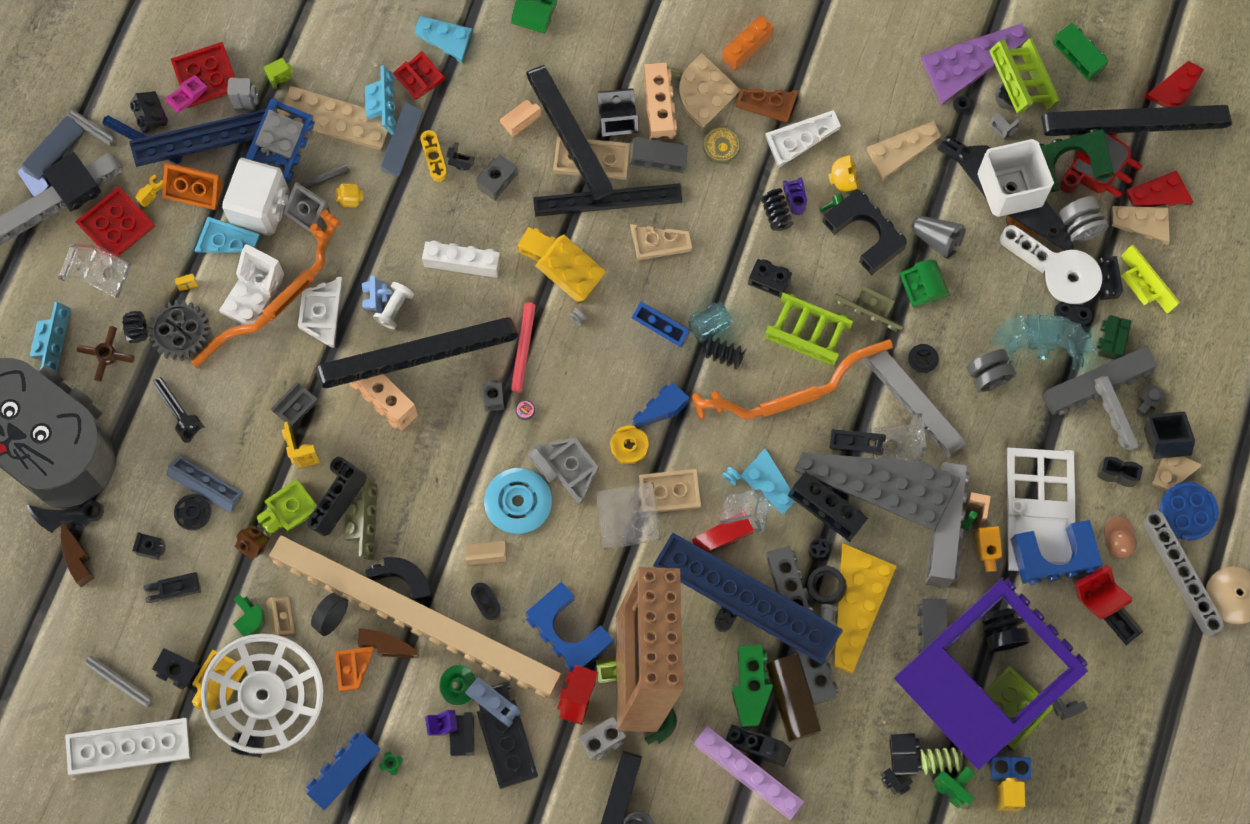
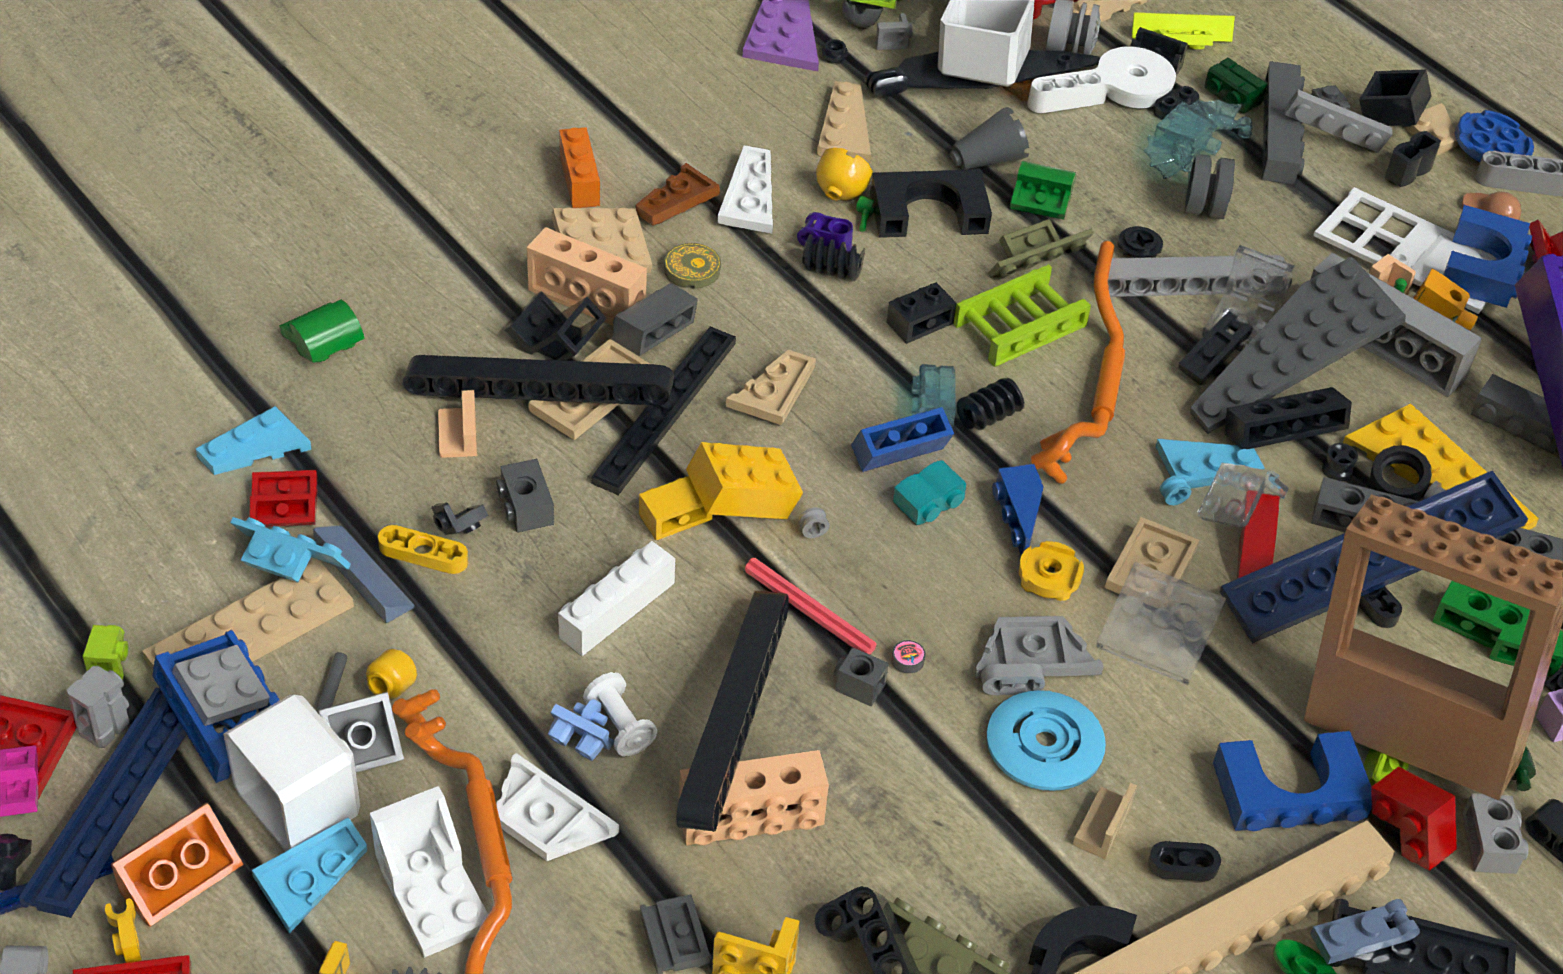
camera: 60 degrees left, 25 degrees down
(638, 358) = (929, 492): none -> teal brick

